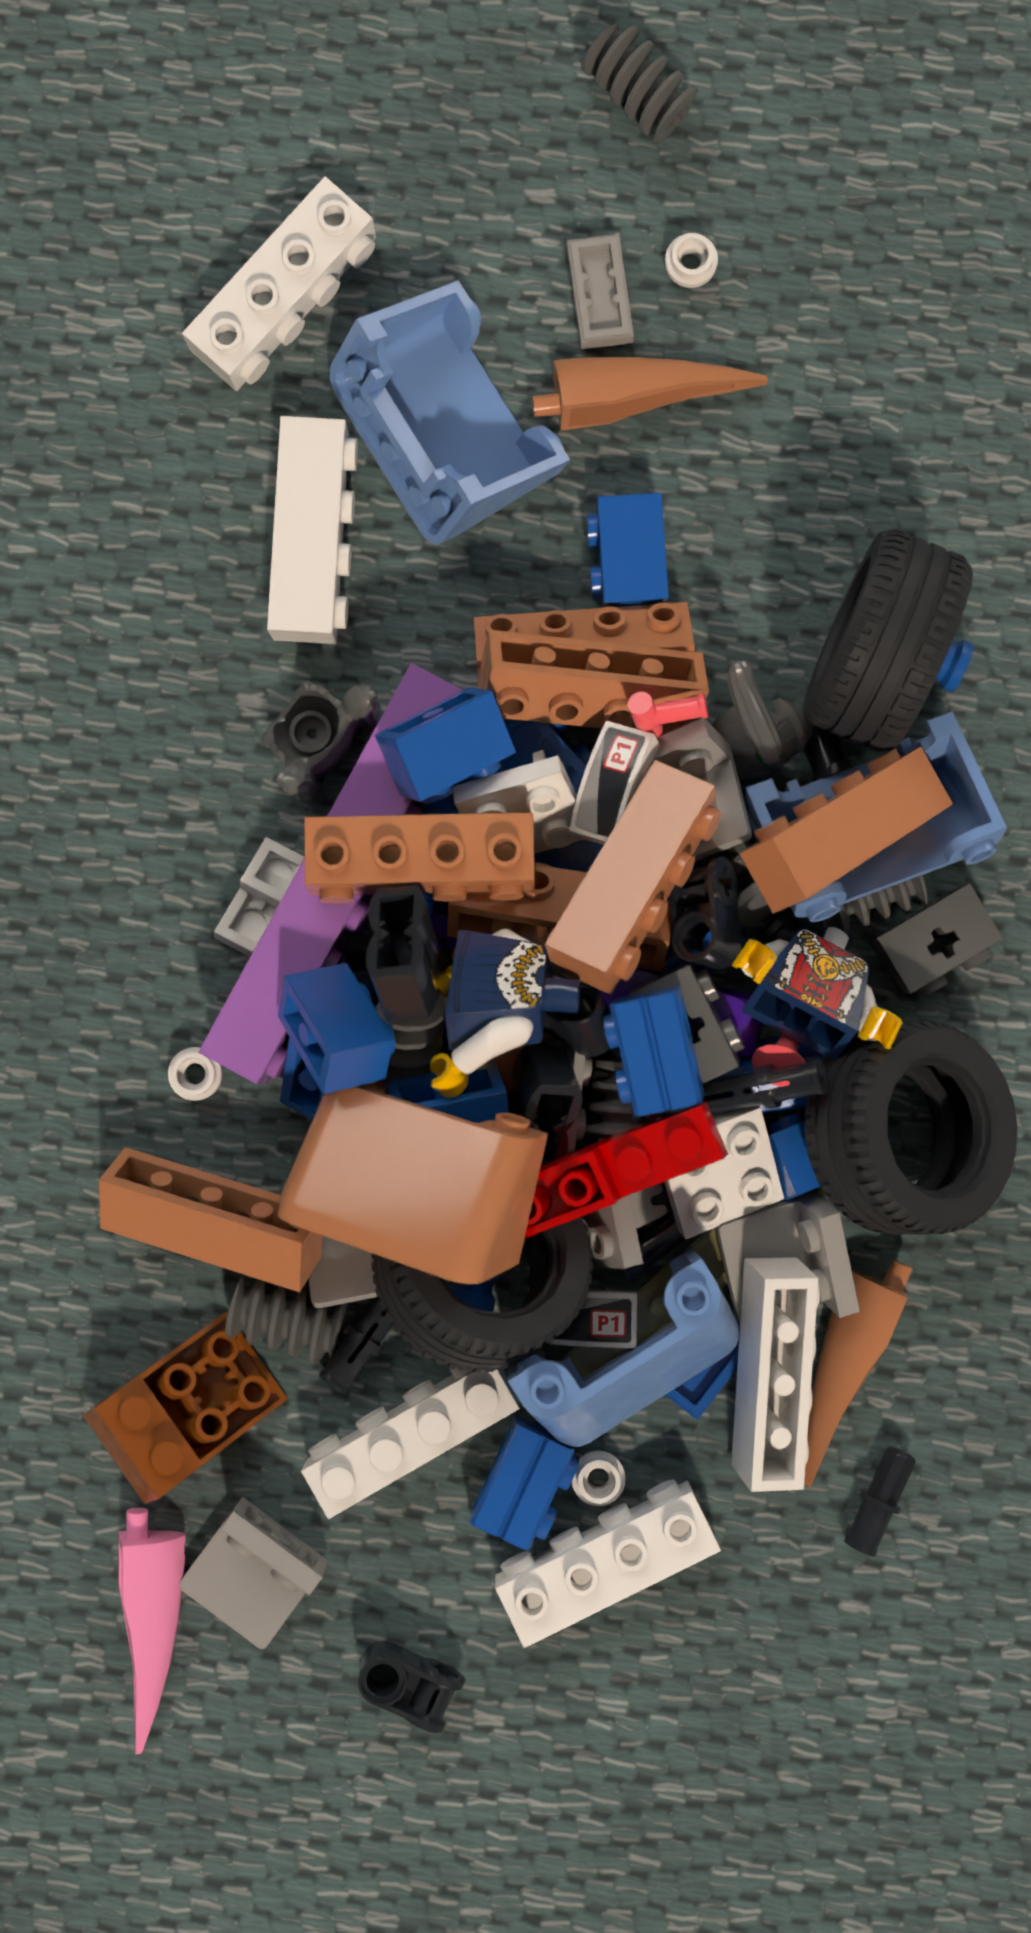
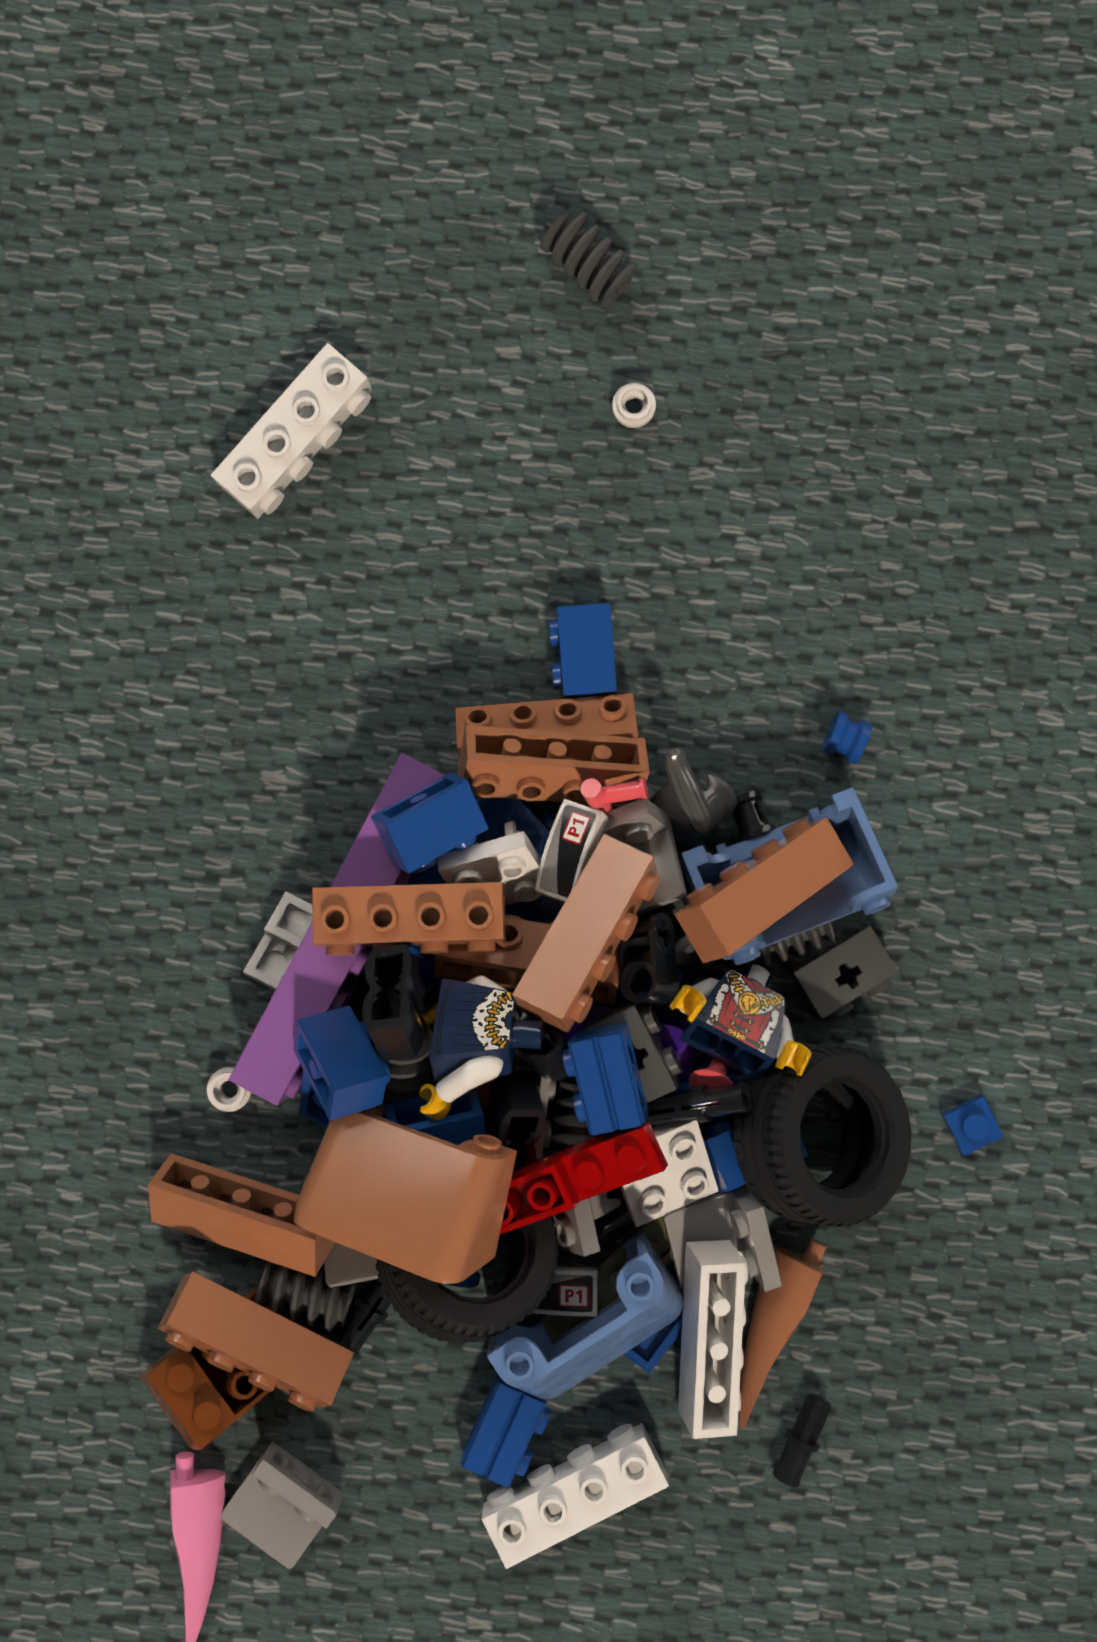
camera: 10 degrees right, 0 degrees up
(226, 1370) = (255, 1341): none -> nougat brick
(310, 530) = (319, 636): white brick -> none
(336, 728) = (324, 825): dark grey hair -> none
(406, 1436) = (403, 1394): white brick -> none
(417, 1691) = (418, 1604): black piece -> none
(437, 415) = (425, 538): medium blue windscreen -> none
(600, 291) = (558, 432): light grey plate -> none
(602, 1494) = (570, 1436): white plate -> none
(615, 388) = (569, 513): nougat piece -> none
(888, 640) = (798, 728): black tyre -> none

